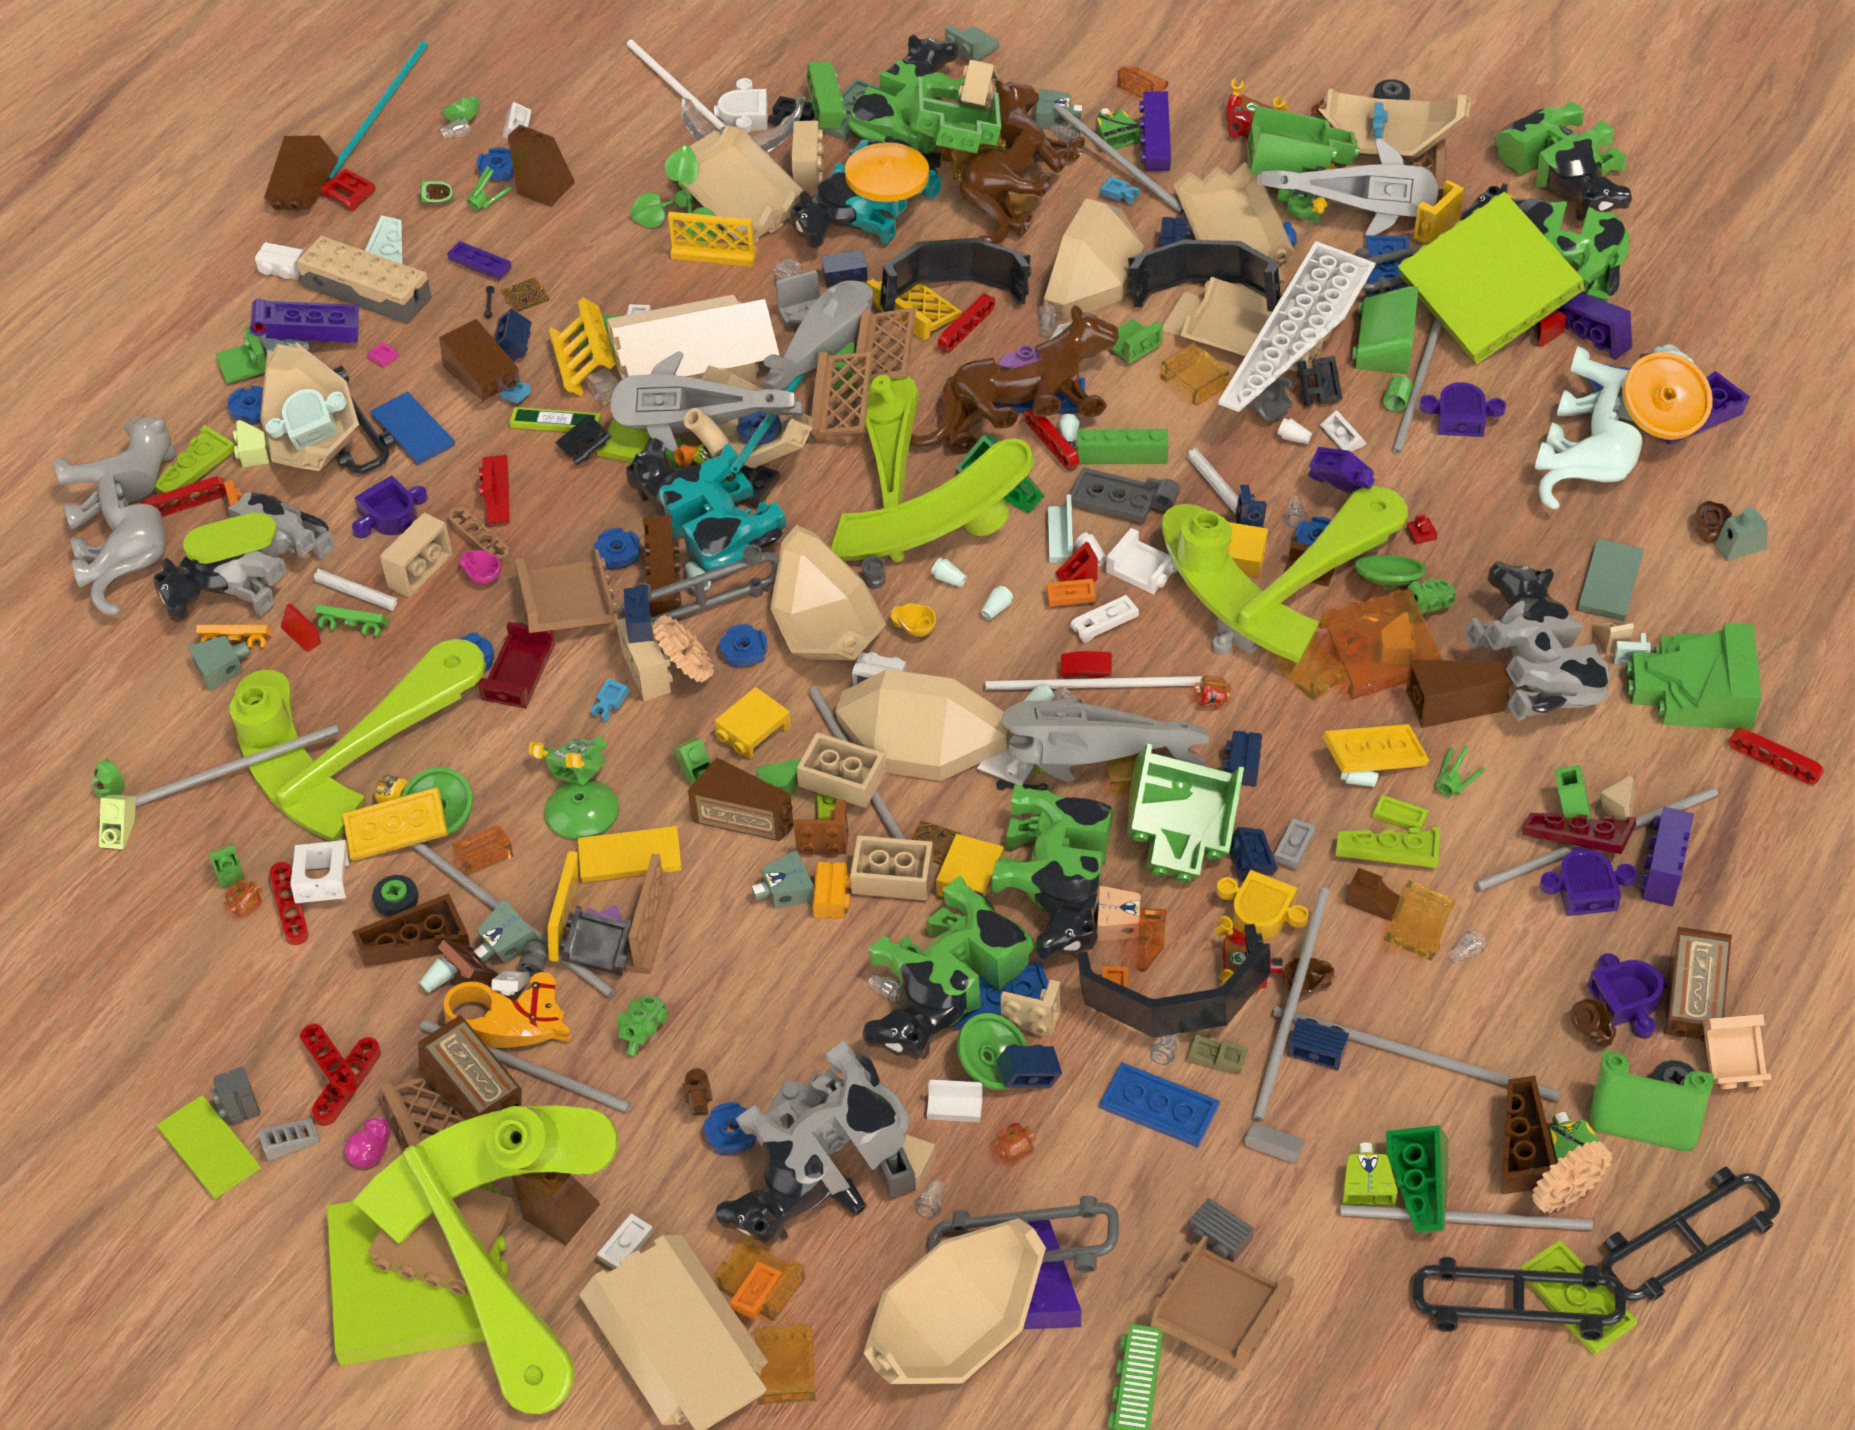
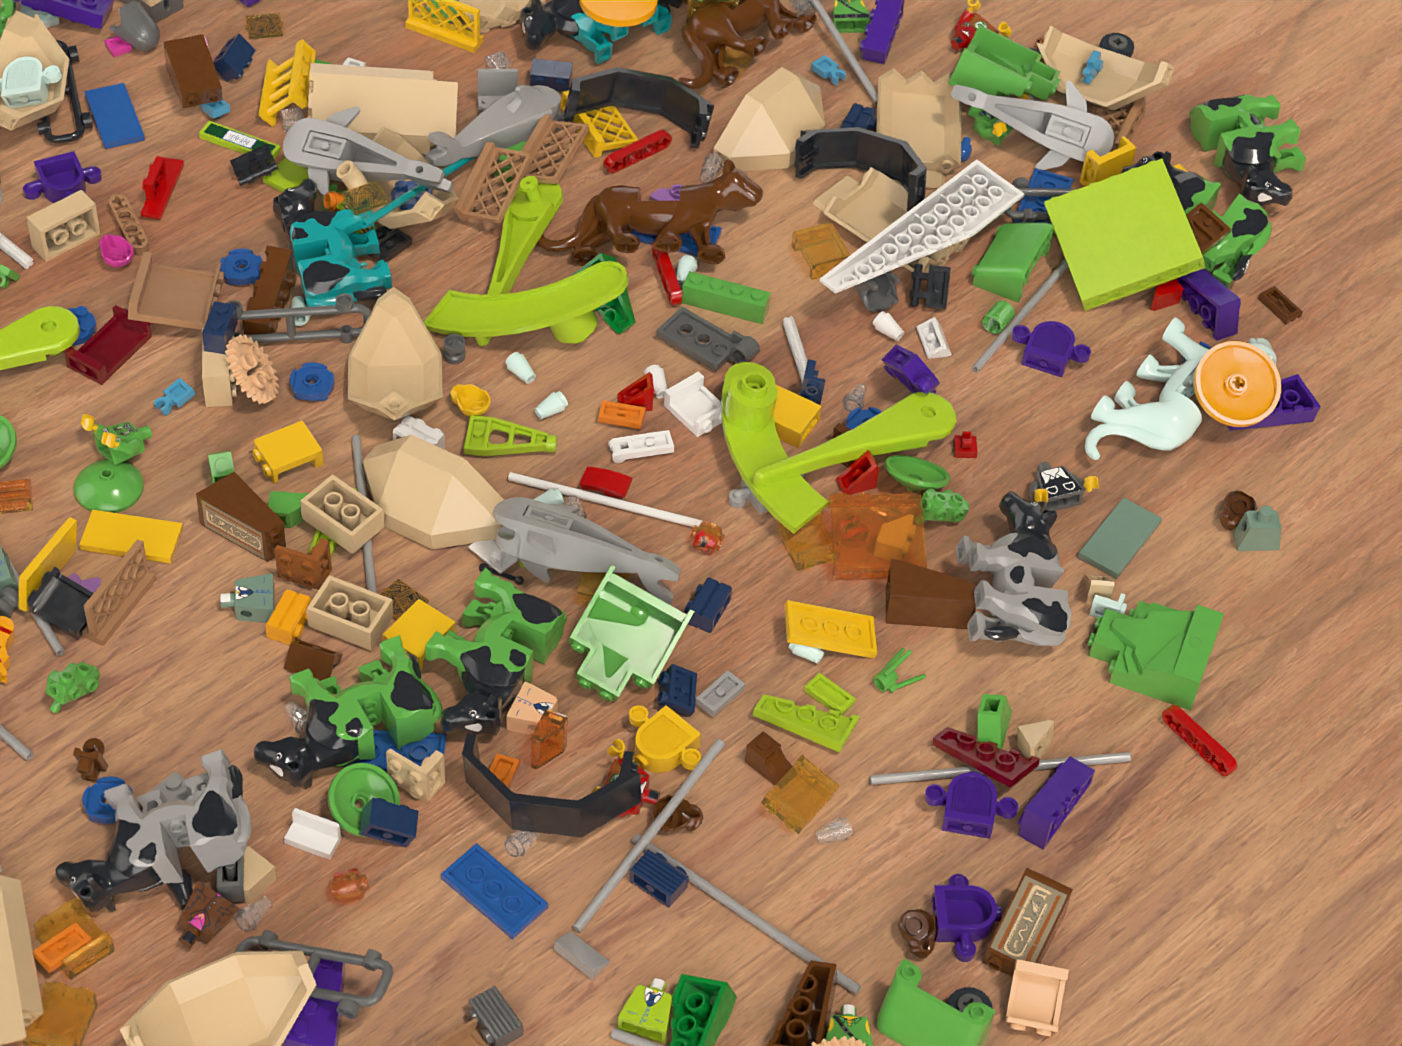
camera: 10 degrees right, 0 degrees up
(398, 330) = (137, 27): none -> dark grey hair
(489, 290) = (235, 14): black hinge -> none
(724, 442) = (365, 198): none -> clear yellow piece
(869, 926) = (313, 657): none -> reddish brown panel
(884, 1214) = (204, 915): none -> reddish brown torso
(938, 654) = (480, 431): none -> lime plate
(1060, 532) = (637, 358): light aqua panel -> none
(1137, 340) = (782, 206): bright green bracket -> none
(1218, 1056) = (564, 862): olive slope -> none
(1334, 588) = (860, 475): none -> red slope
(1533, 545) = (1058, 487): none -> torso
(1572, 247) = (1206, 227): none -> reddish brown wing
(1661, 308) = (1277, 306): none -> reddish brown tile

